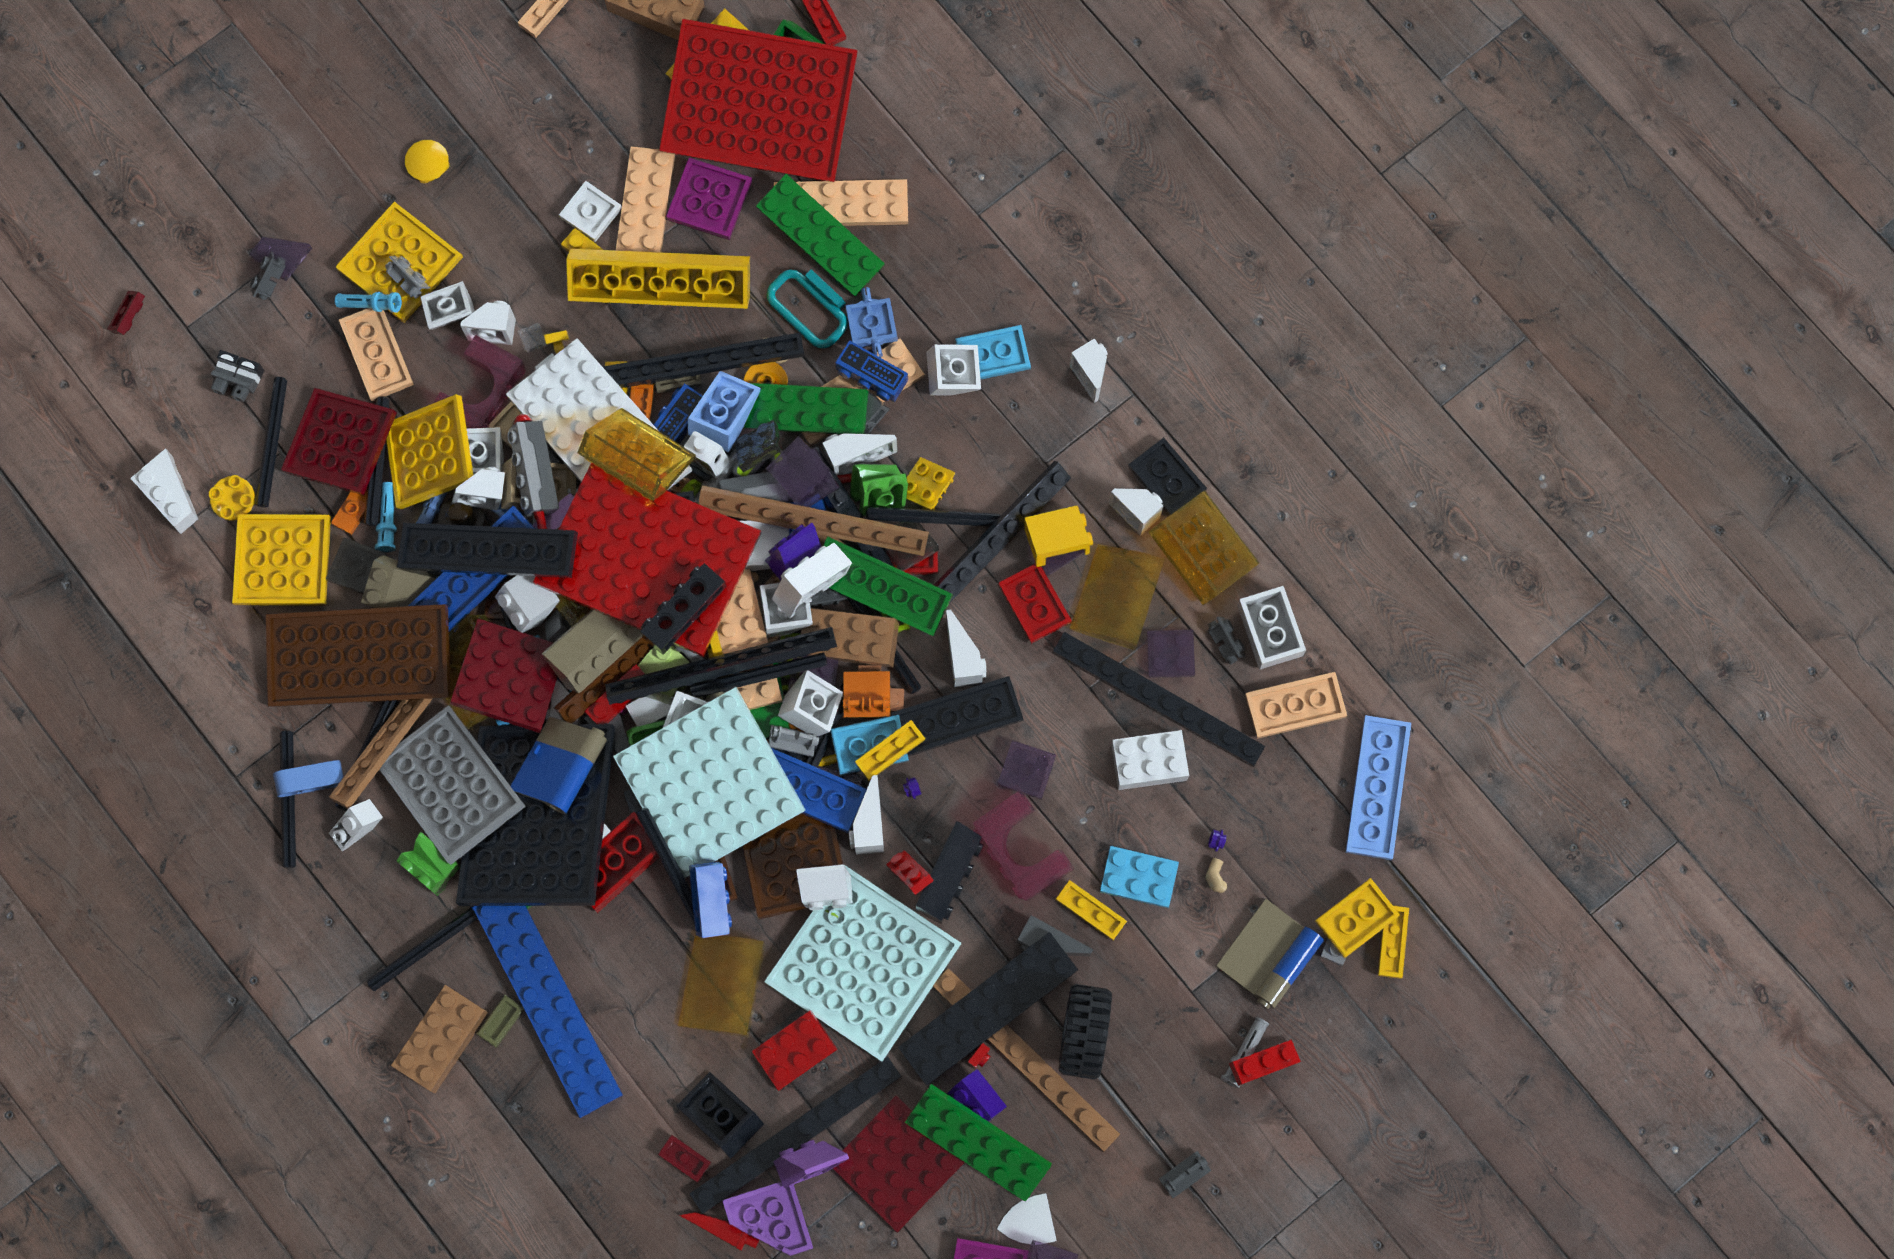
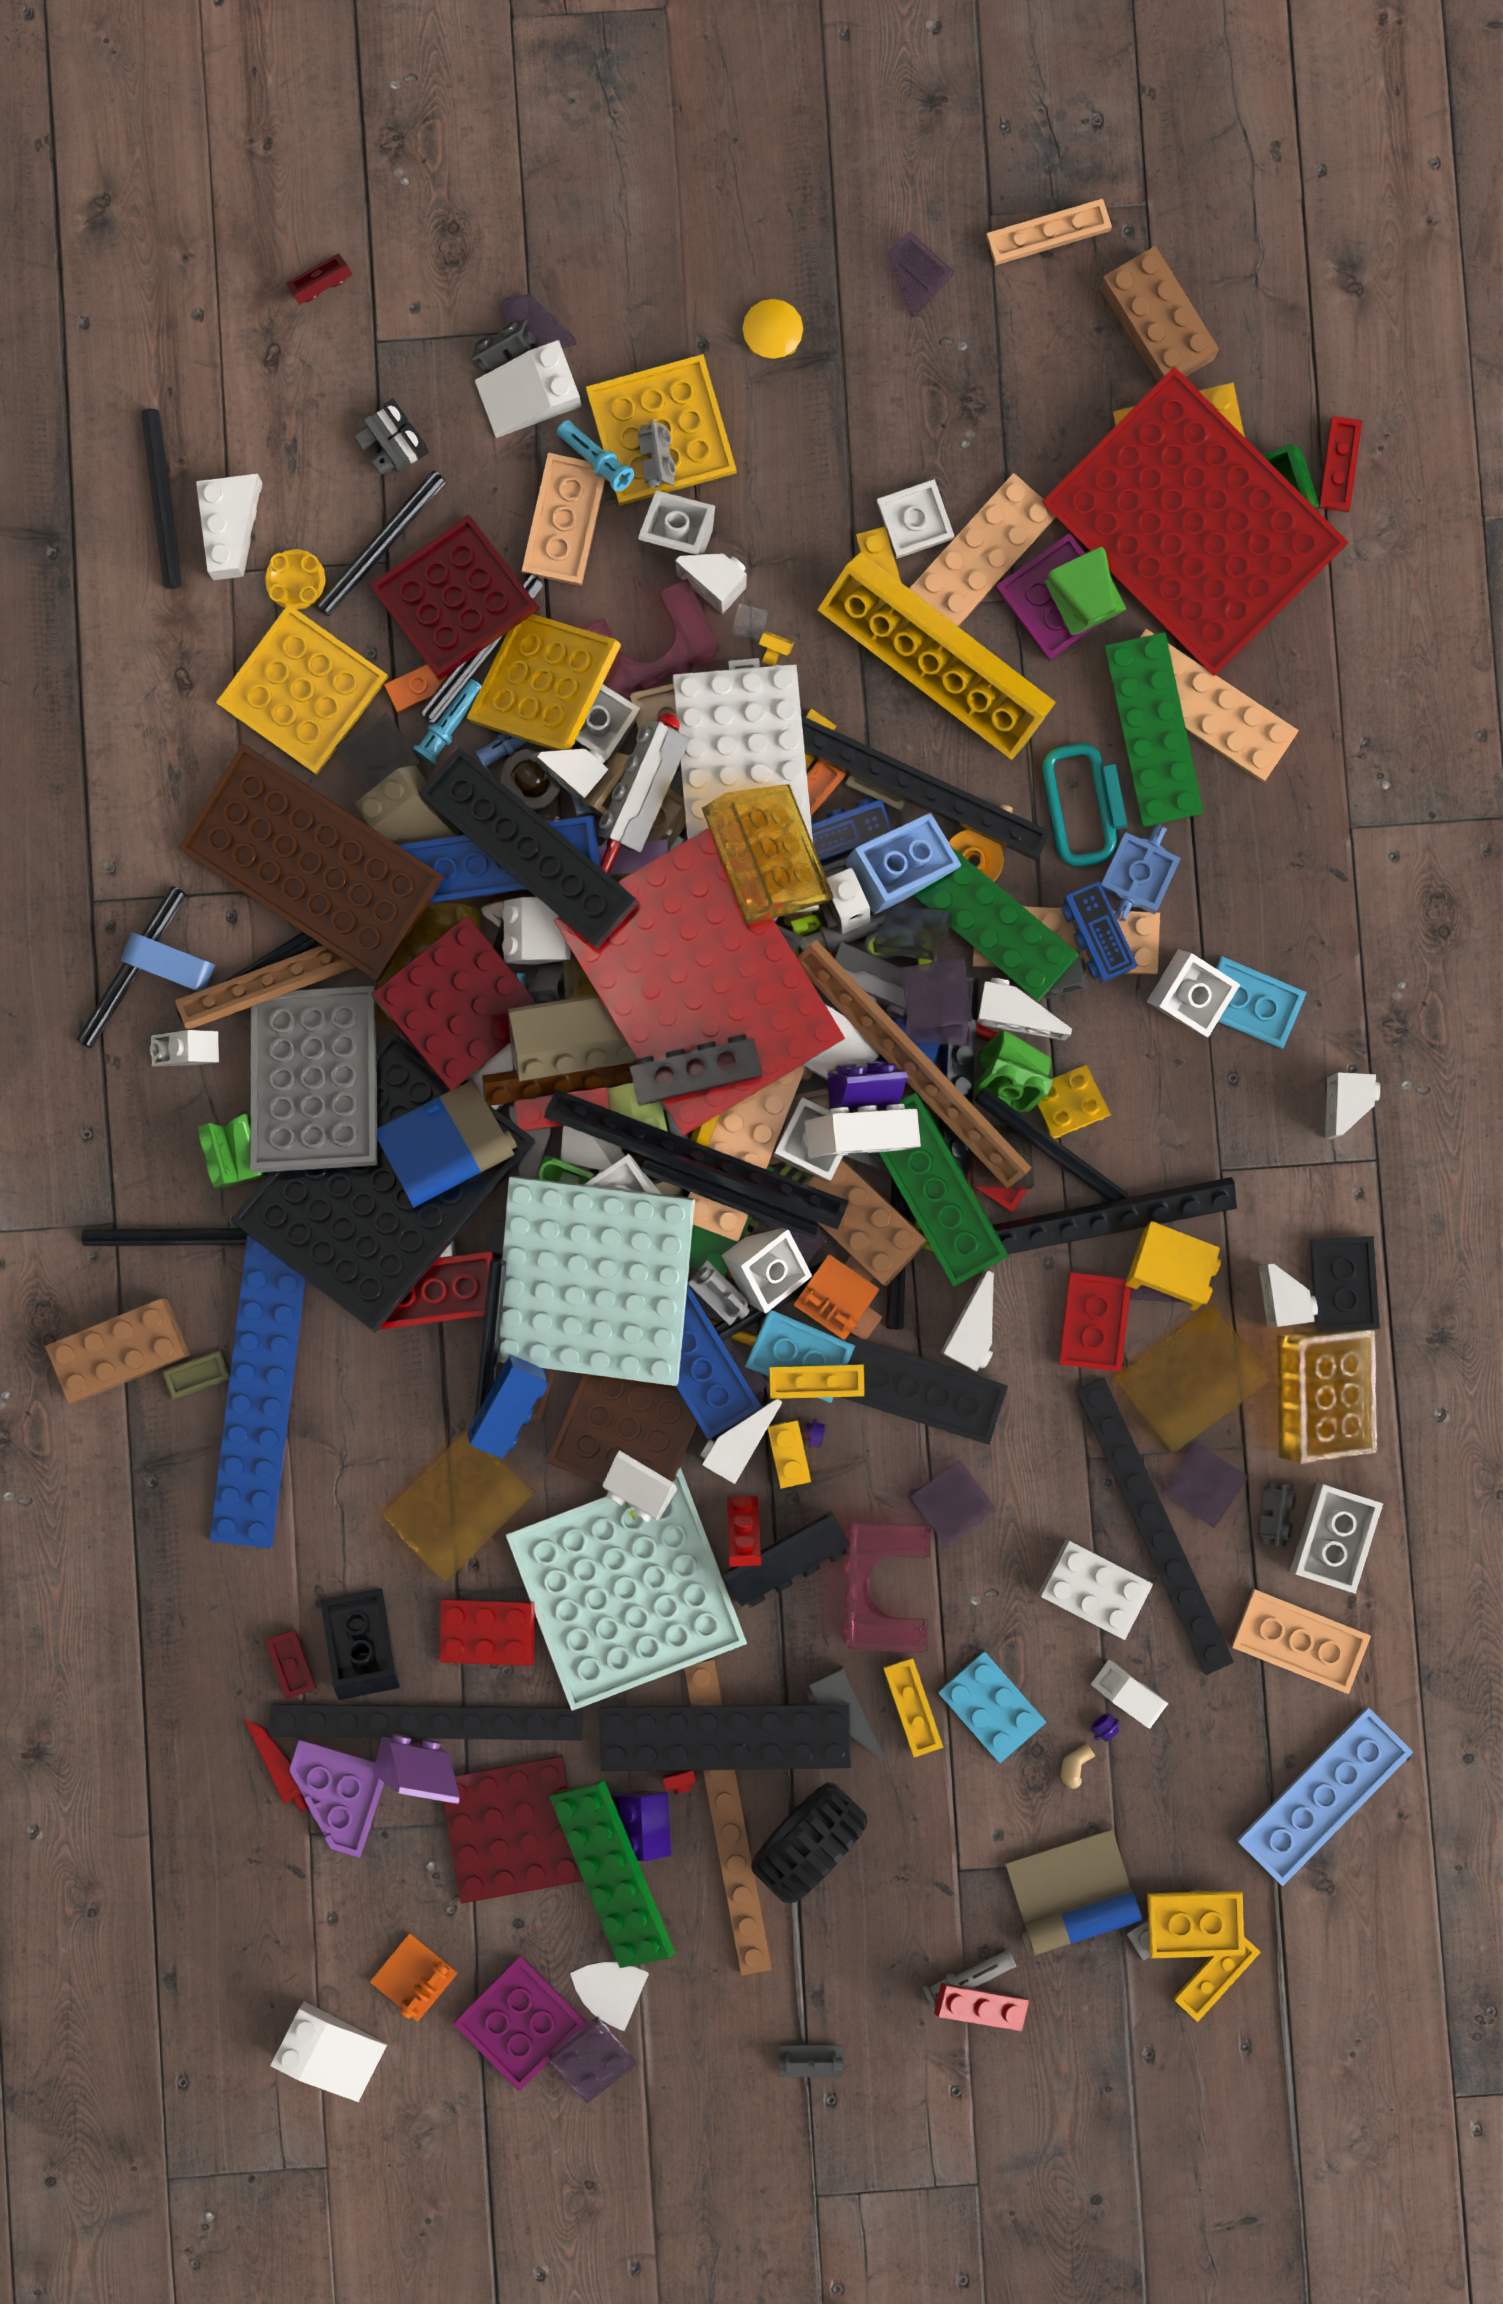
camera: 30 degrees right, 10 degrees up
(115, 506) = (161, 499): none -> black axle
(301, 291) = (528, 389): none -> white slope
(491, 71) = (918, 272): none -> clear purple wing
(721, 182) = (1085, 591): none -> bright green piece
(905, 809) = (789, 1454): none -> yellow brick
(1216, 808) = (1129, 1694): none -> white slope

